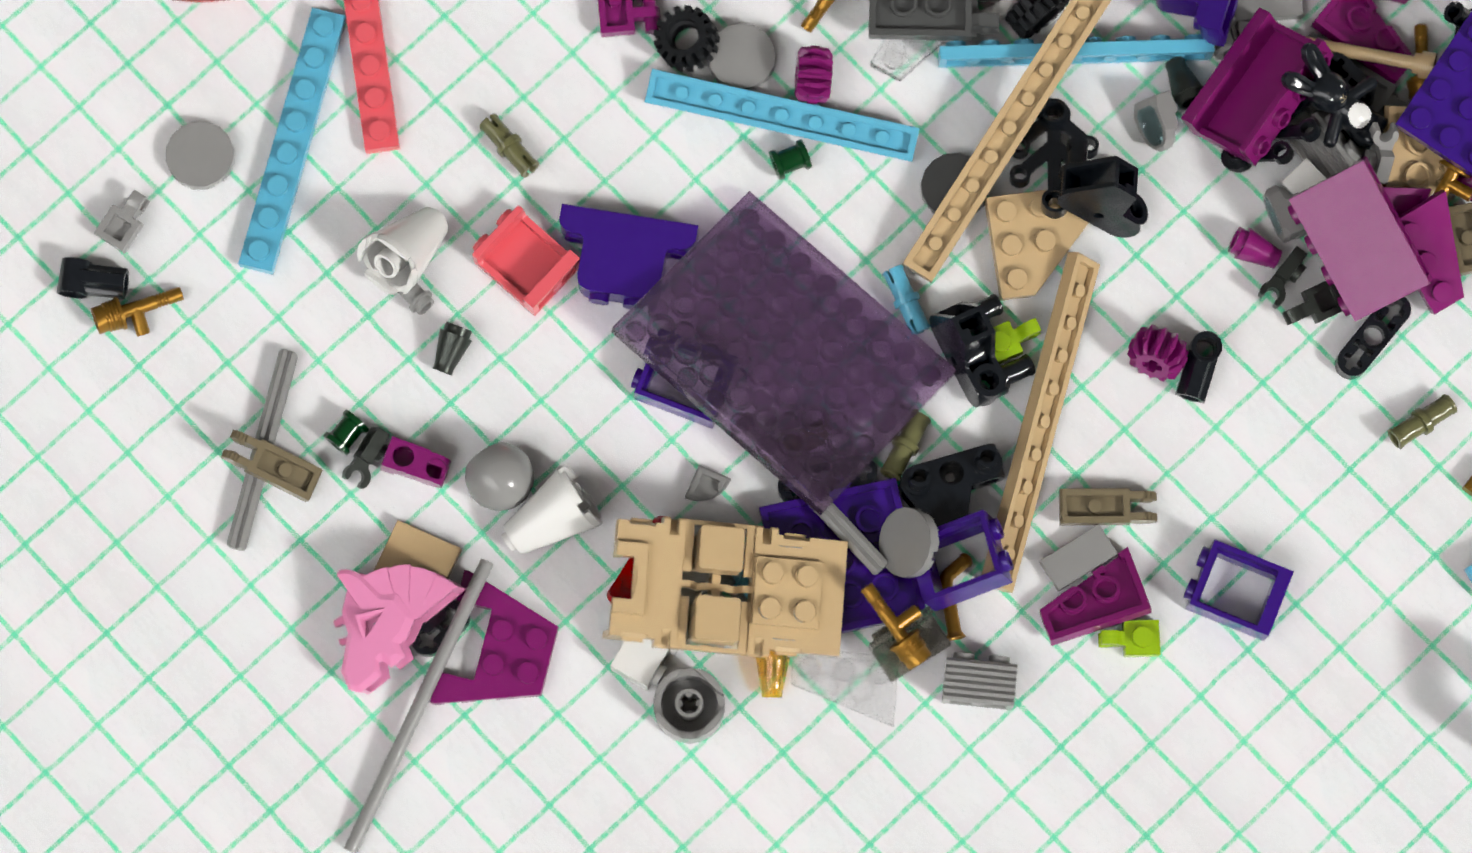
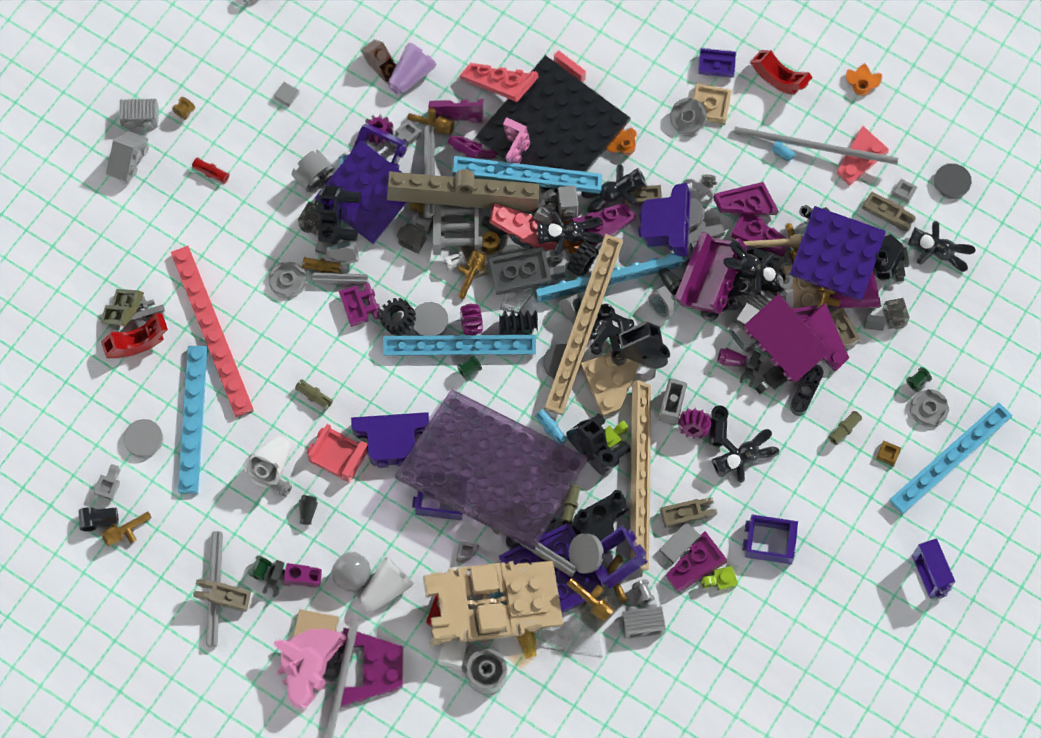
camera: 15 degrees left, 10 degrees down
(894, 97) = (518, 322): none -> black piece
(992, 629) = (643, 592): none -> light grey bush
(994, 89) = (570, 306): none -> light grey rock
(1129, 305) = (672, 401): none -> light grey brick
(1236, 428) = (746, 454): none -> black animal

